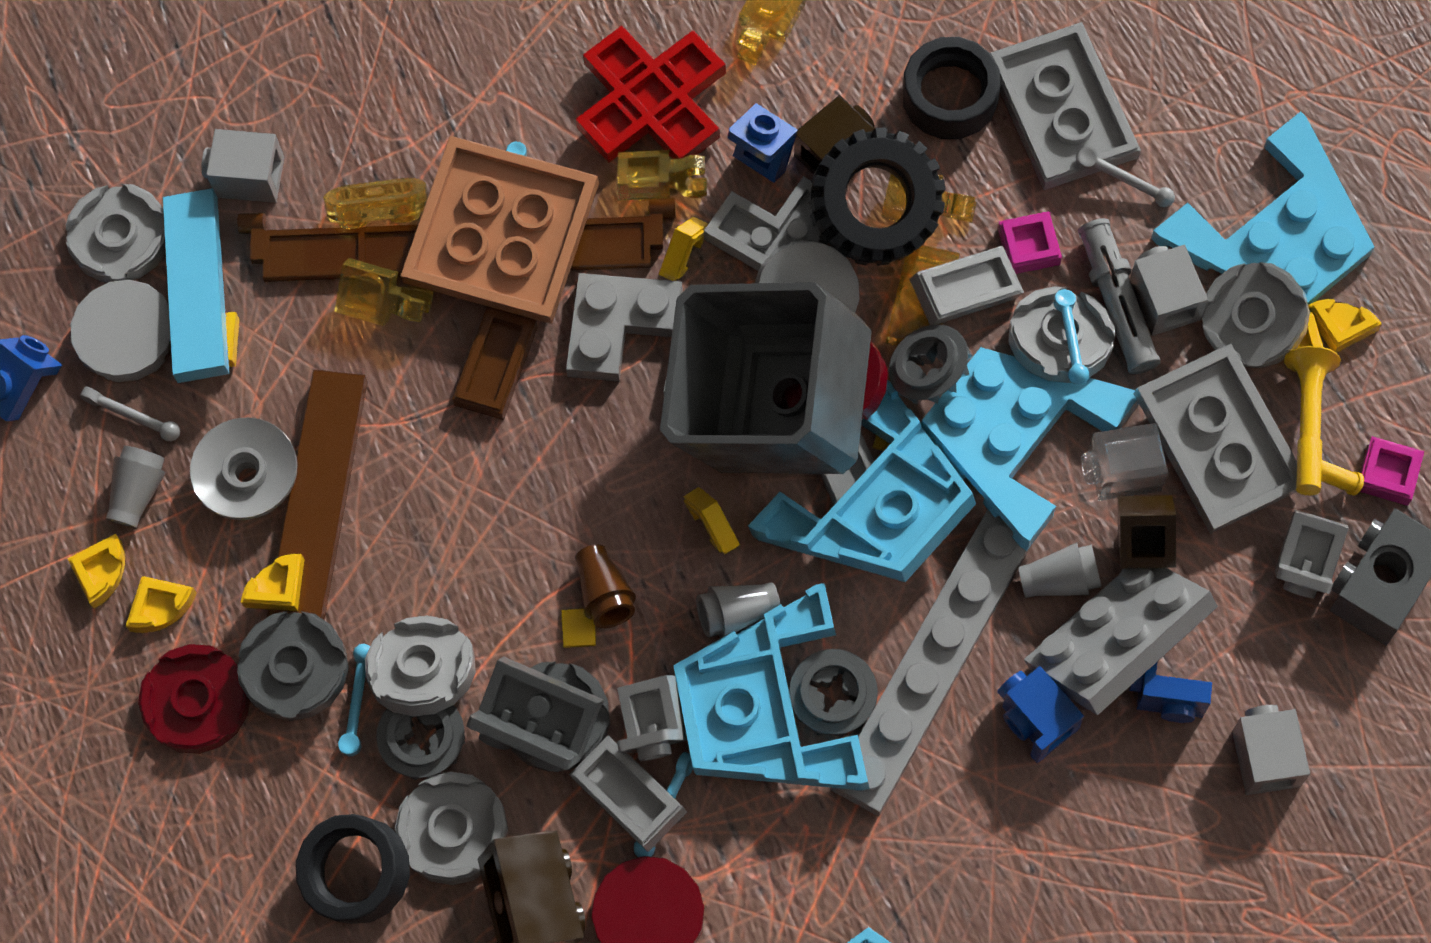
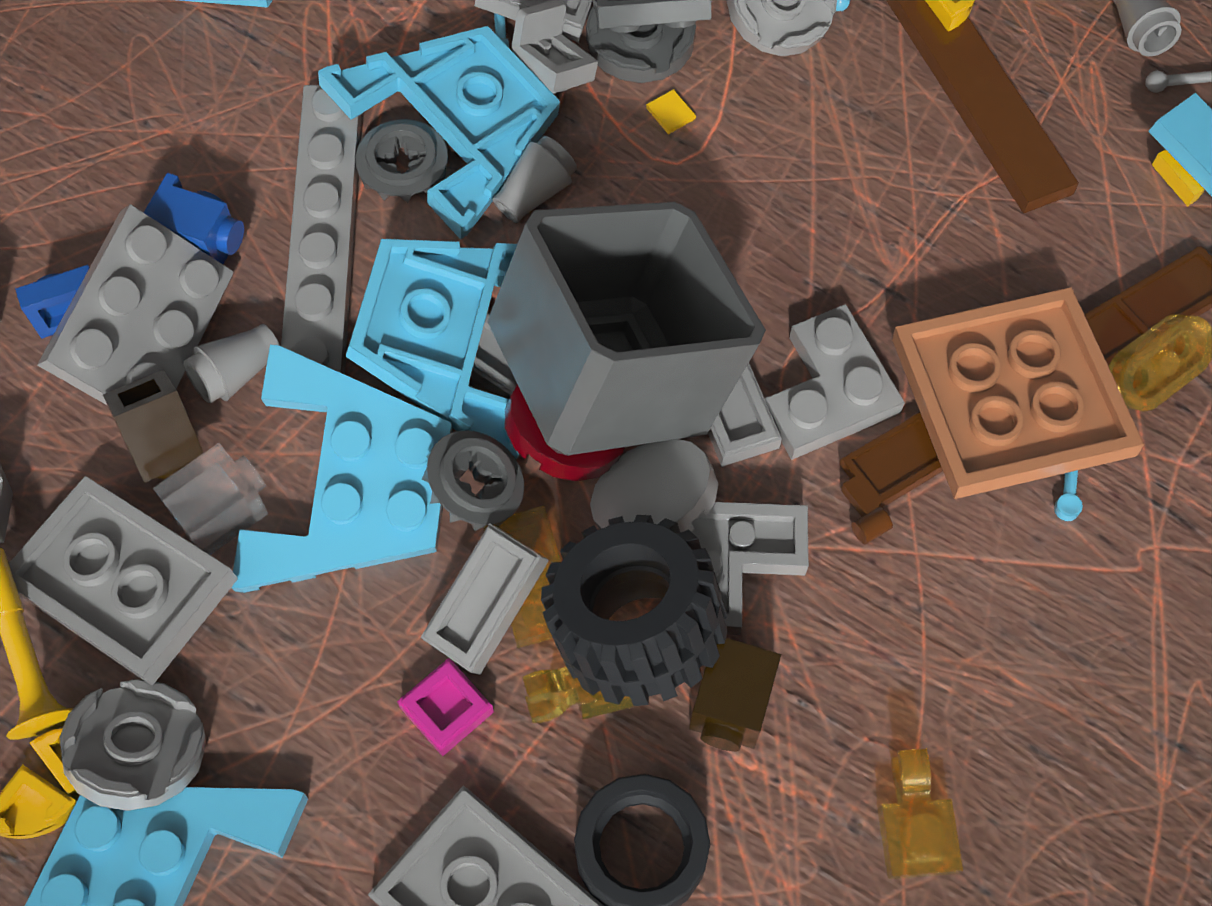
camera: 145 degrees right, 5 degrees down
(229, 451) = (1063, 68): light grey dish -> none
(372, 294) = (1089, 273): clear yellow plate -> none
(495, 363) = (915, 275): reddish brown tile -> none
(604, 590) = (667, 135): reddish brown cone -> none
(651, 95) = (976, 640): red plate -> none
(653, 173) = (908, 543): clear yellow plate -> none
(683, 239) = (820, 485): yellow tile -> none
(763, 142) = (813, 626): blue bracket -> none
(1040, 337) = (351, 607): light grey tile -> none
(1064, 302) = (363, 637): medium azure hinge -> none
(1088, 157) = (424, 837): light grey hinge -> none
(1100, 242) = (327, 708): light grey pin -> none
(1168, 289) = (252, 721): light grey brick -> none

